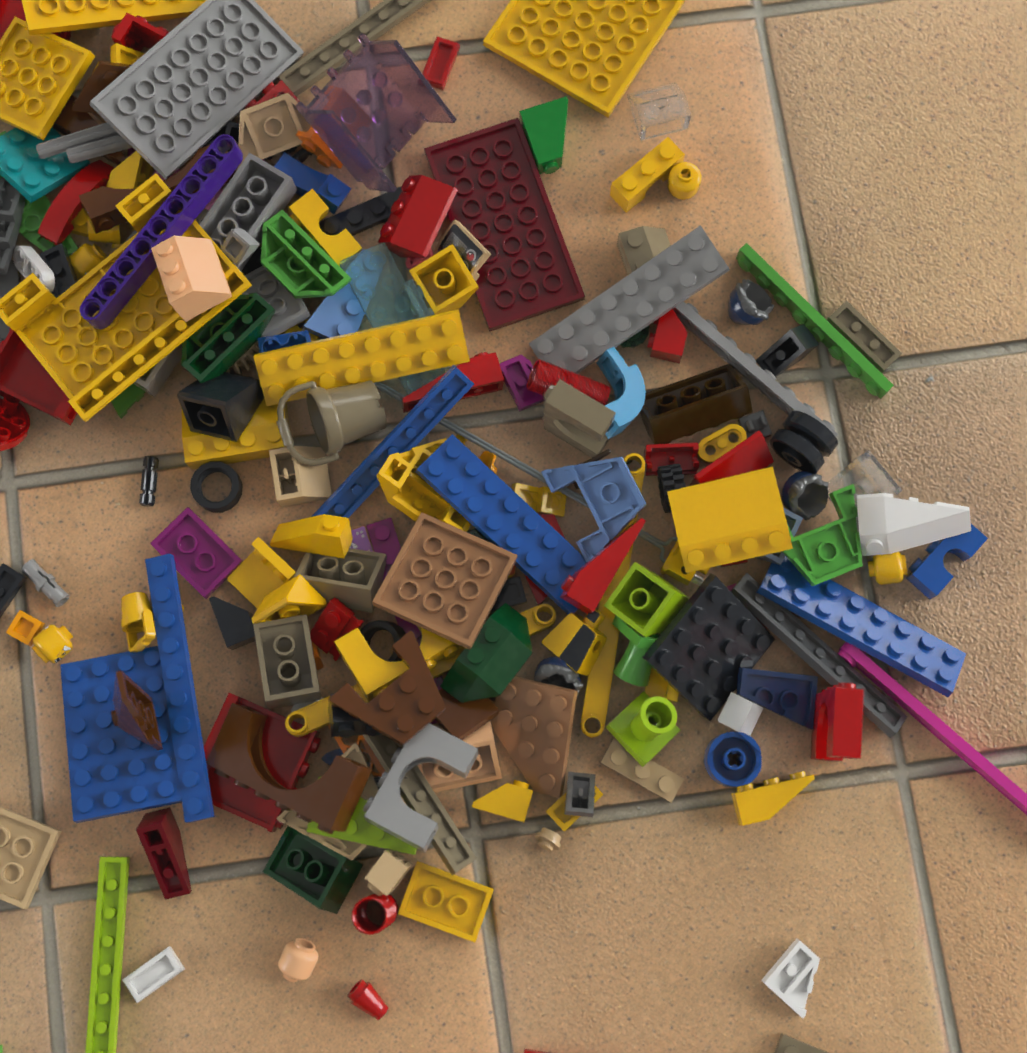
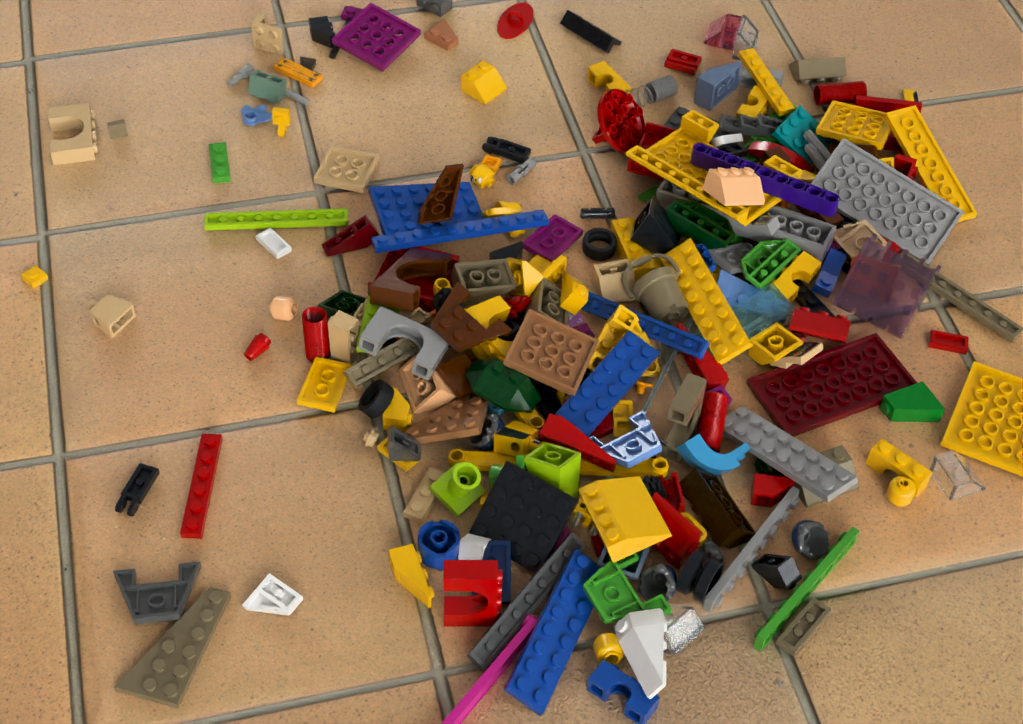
camera: 80 degrees right, 30 degrees down
(483, 841) = (376, 398): none -> black tyre

